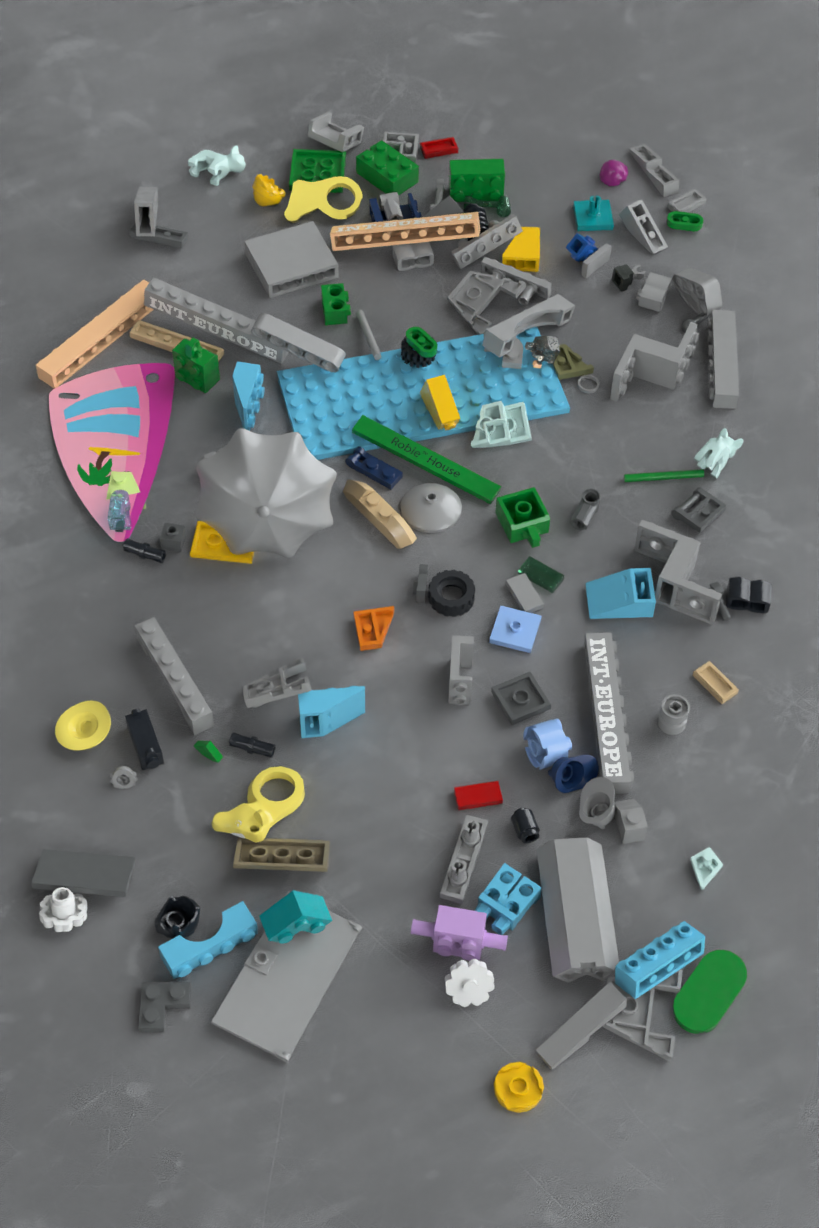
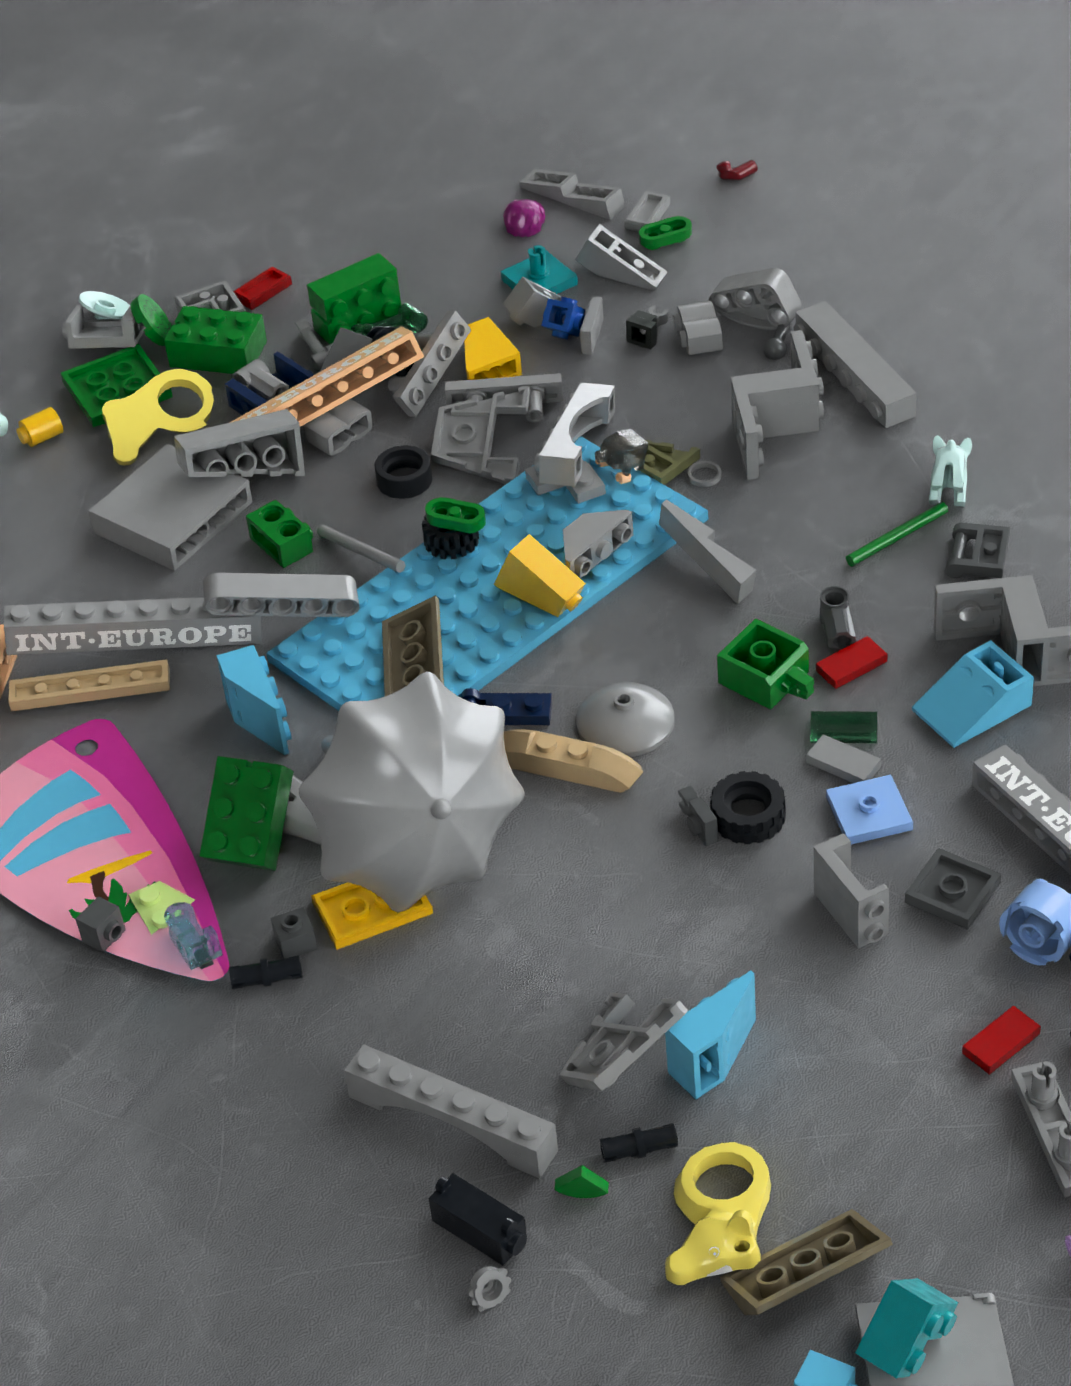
camera: 25 degrees left, 10 degrees down
(82, 481) = (100, 924): none -> dark grey plate
(83, 726) = (374, 1247): light yellow hat -> none
(187, 450) = (246, 813): none -> green piece
(195, 365) = (148, 694): green hinge -> none
(250, 176) = (39, 427): none -> yellow brick
(266, 192) = (66, 439): yellow hair -> none
(341, 414) = (412, 645): none -> dark tan slope
(345, 117) = (103, 305): none -> light aqua dish
(345, 244) = (243, 447): none -> light grey wedge
(360, 137) = (153, 318): none -> green tile
(372, 626) = (676, 904): orange wing -> none
(426, 310) = (403, 457): none -> black tyre
(426, 459) = (572, 660): green tile -> none
(486, 391) = (594, 538): none -> light grey slope
(501, 425) = (640, 571): light aqua slope -> none
(546, 424) = (697, 541): none -> light grey slope
(573, 224) = (528, 302): none -> light grey slope
(575, 539) = (851, 662): none -> red tile
(758, 202) = (736, 173): none -> dark red arm

